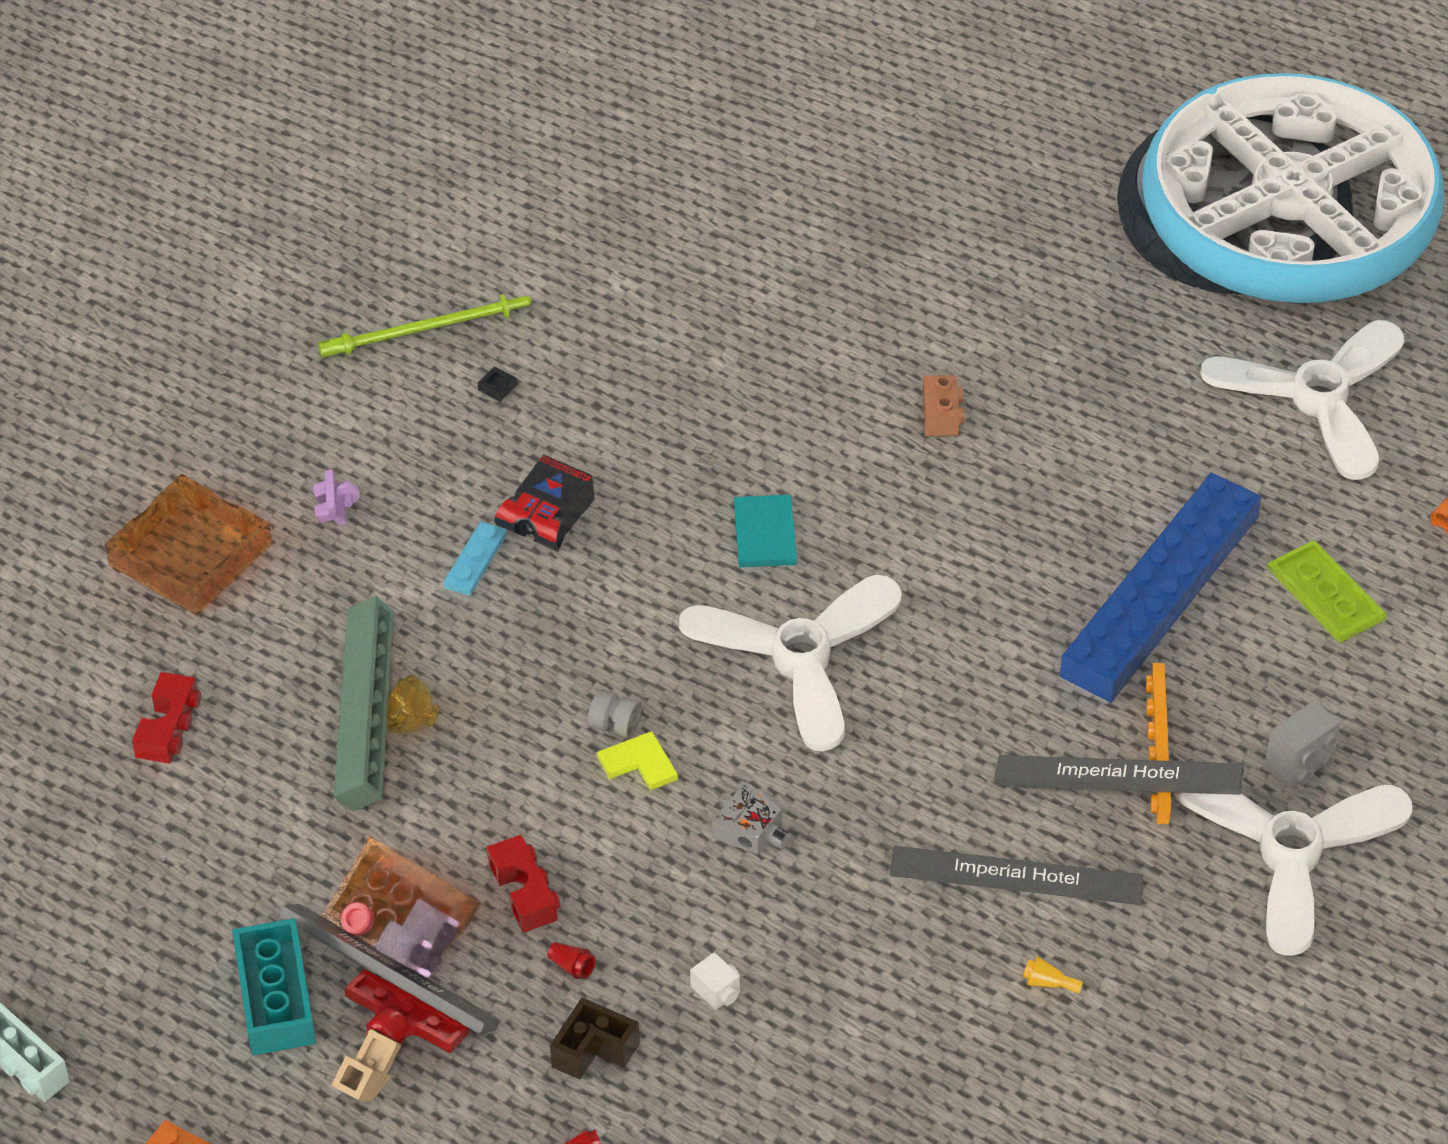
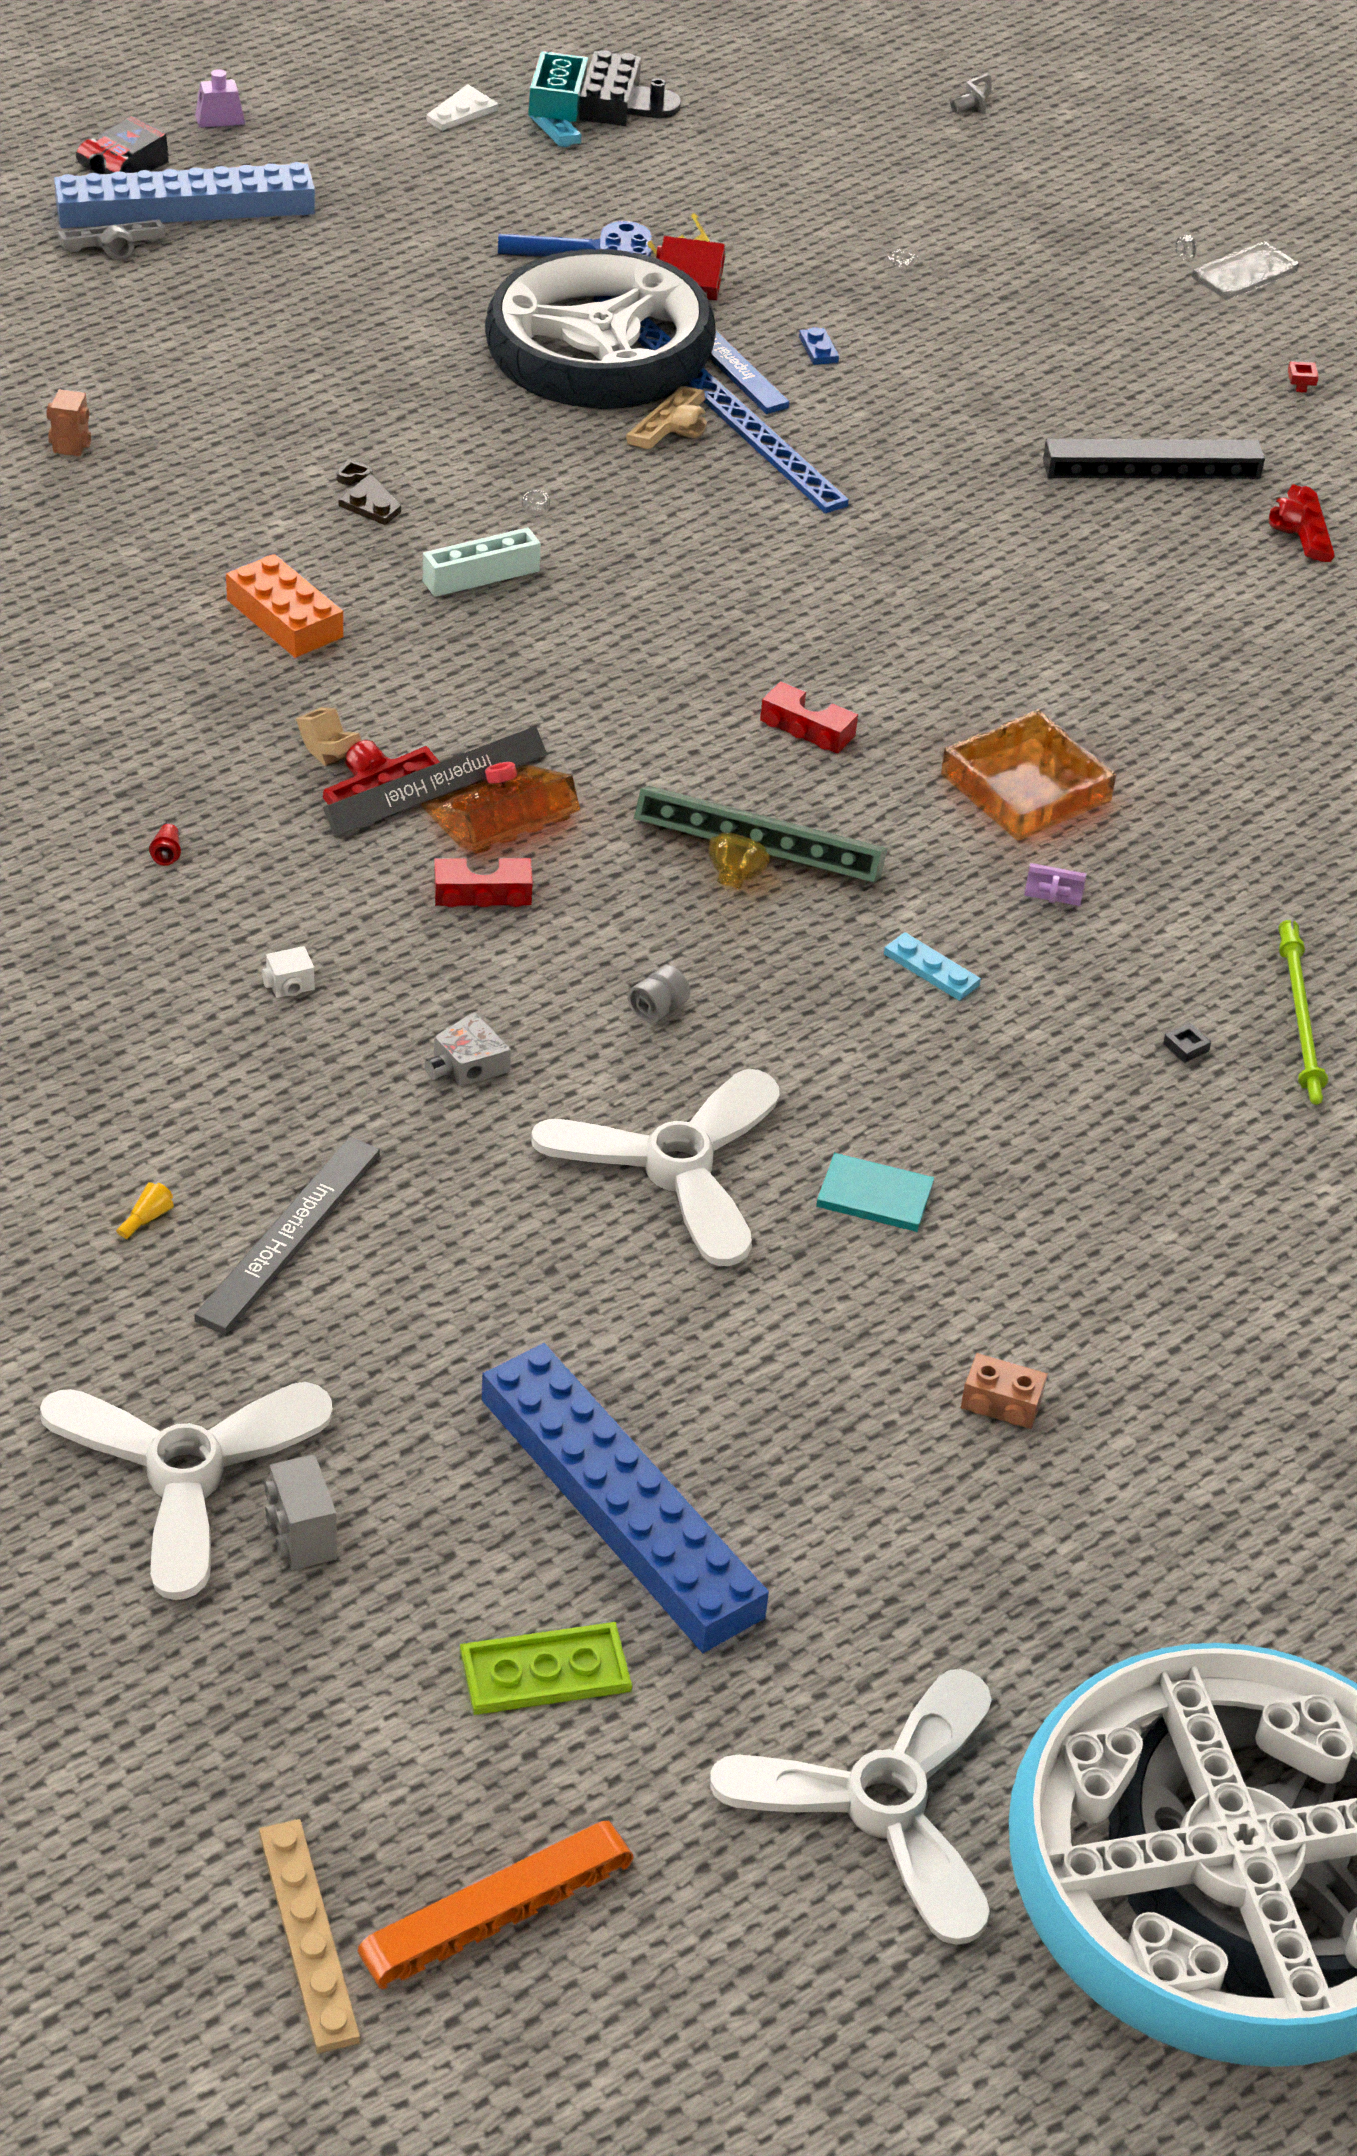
camera: 105 degrees right, 5 degrees down
(273, 986) = (451, 705): teal brick -> none
(420, 939) = (433, 778): brick -> none
(547, 502) = (979, 1027): black piece -> none
(572, 959) = (376, 893): red cone -> none
(591, 1033) = (271, 872): dark brown brick -> none
(641, 754) = (603, 1010): neon yellow tile -> none
(1119, 774) = (351, 1339): dark grey tile -> none
(1158, 732) = (395, 1406): light orange plate -> none

